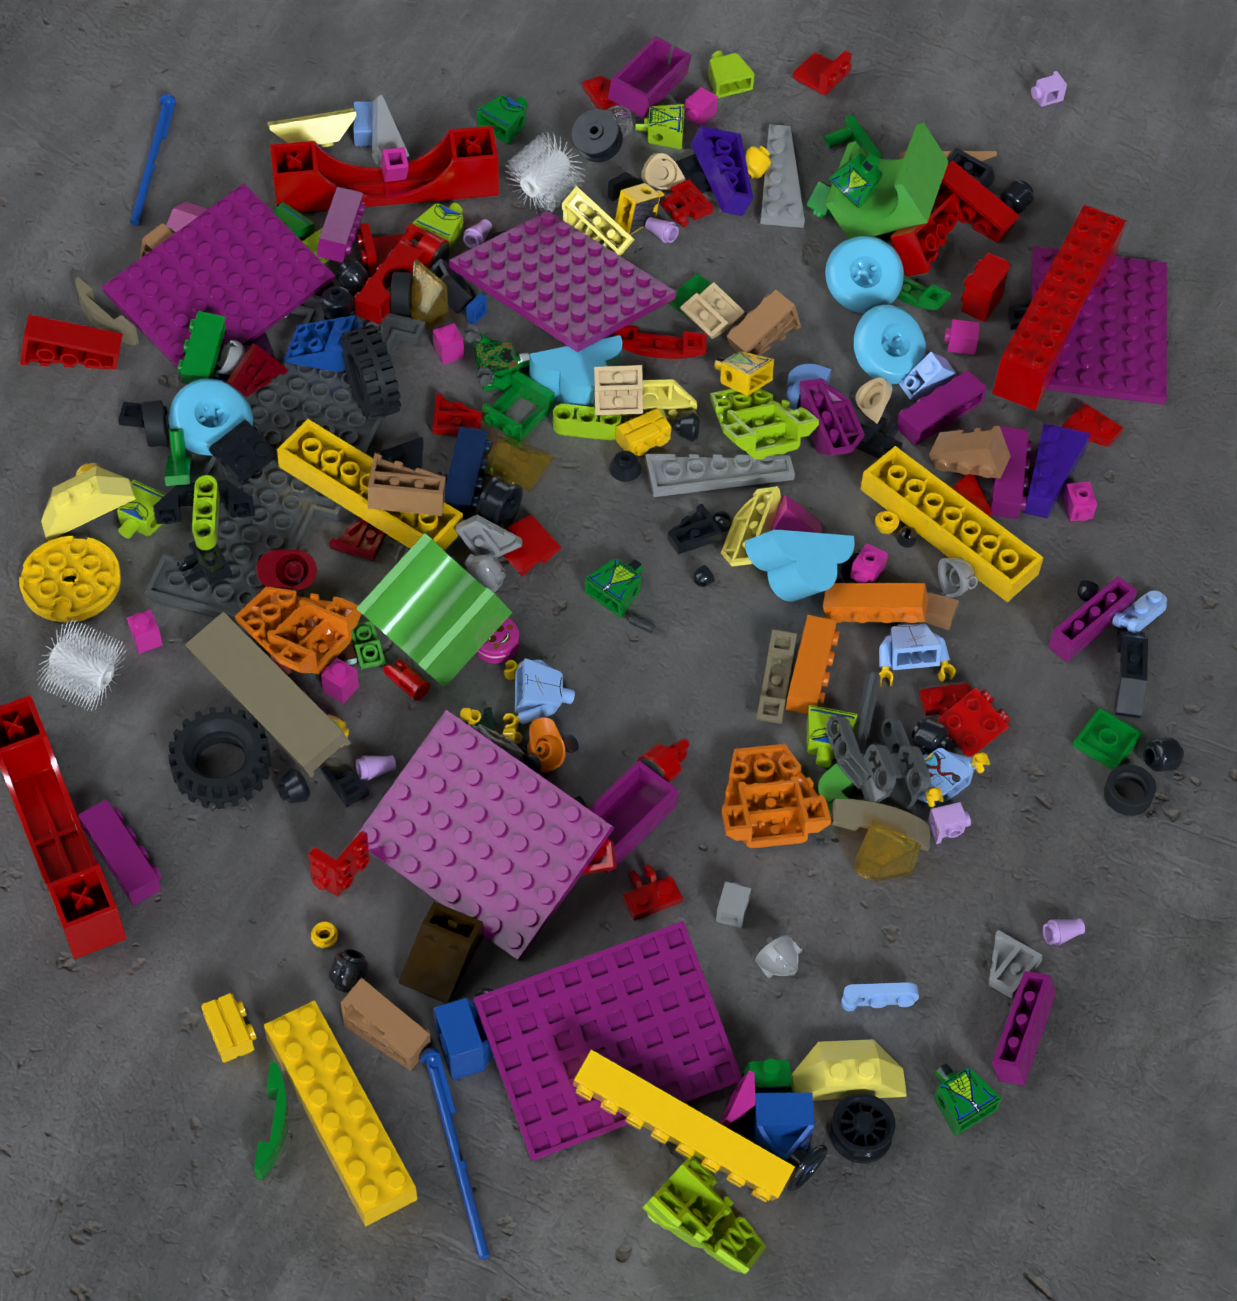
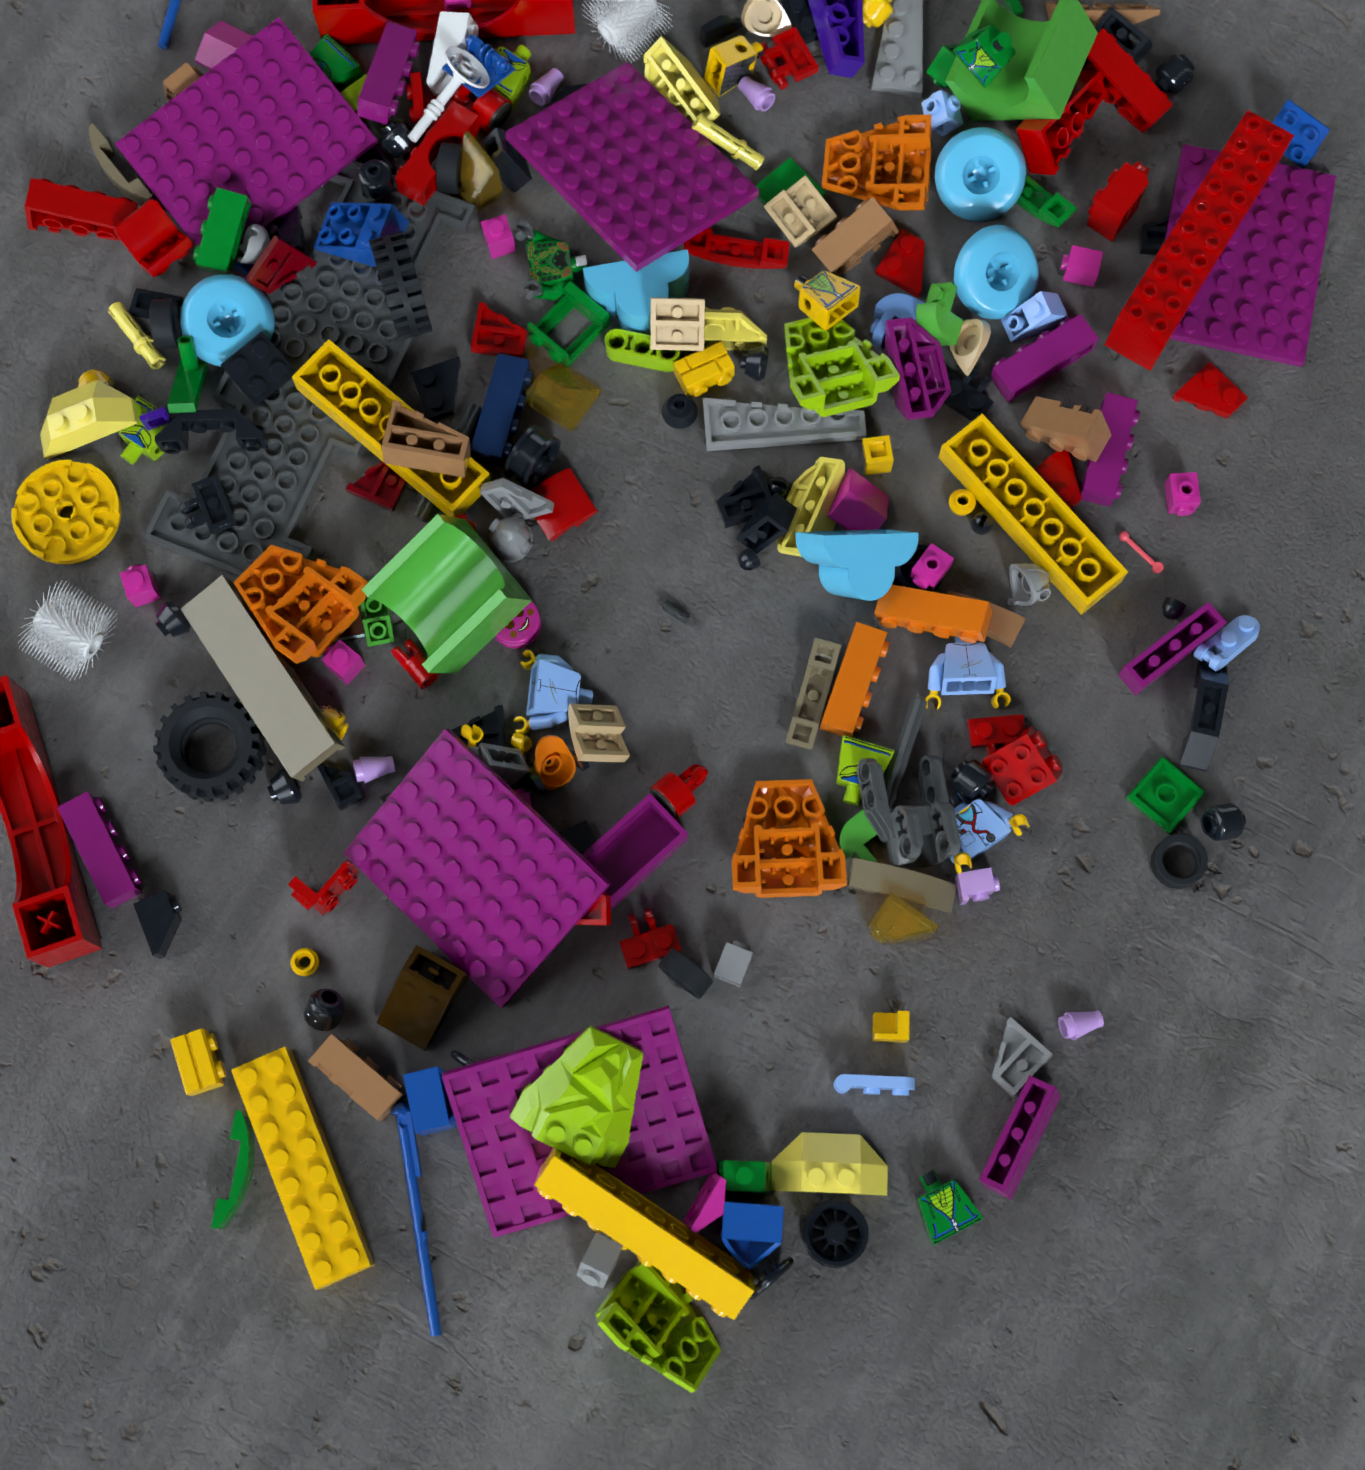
camera: 10 degrees right, 20 degrees up
(132, 443) = (142, 343): none -> light yellow pin
(137, 360) = (152, 238): none -> red bracket
(152, 492) = (155, 417): none -> dark purple slope
(176, 657) = (172, 620): none -> black cone
(181, 907) = (159, 921): none -> black slope
(205, 522) = (204, 440): lime beam -> none
(286, 569) = (293, 528): dark red piece -> none
(394, 205) = (451, 31): none -> white slope
(409, 216) = (466, 67): none -> white dish
(421, 214) = (495, 64): none -> blue hinge
(476, 309) = (534, 191): blue tile -> none
(583, 720) = (597, 733): none -> tan slope
(612, 1009) = (584, 1099): none -> lime wedge
(615, 585) = (652, 564): green torso -> none
(640, 260) = (737, 148): none -> light yellow pin
(640, 1162) = (599, 1261): none -> light grey slope
(692, 908) = (685, 973): none -> black tyre
(716, 543) = (767, 523): none -> black slope
(779, 956) = (775, 1030): light grey helmet -> none
(786, 266) = (883, 163): none -> orange wedge
(807, 345) = (904, 263): none -> red wing
(807, 487) = (877, 455): none -> yellow panel
(824, 233) = (944, 112): none -> light blue brick
(844, 378) = (936, 314): none -> bright green brick
(889, 949) = (891, 1027): none -> yellow panel
(1054, 463) = (1161, 440): dark purple wedge -> none
(1067, 562) = (1157, 567): none -> coral hinge
(1135, 231) = (1307, 132): none -> blue hinge

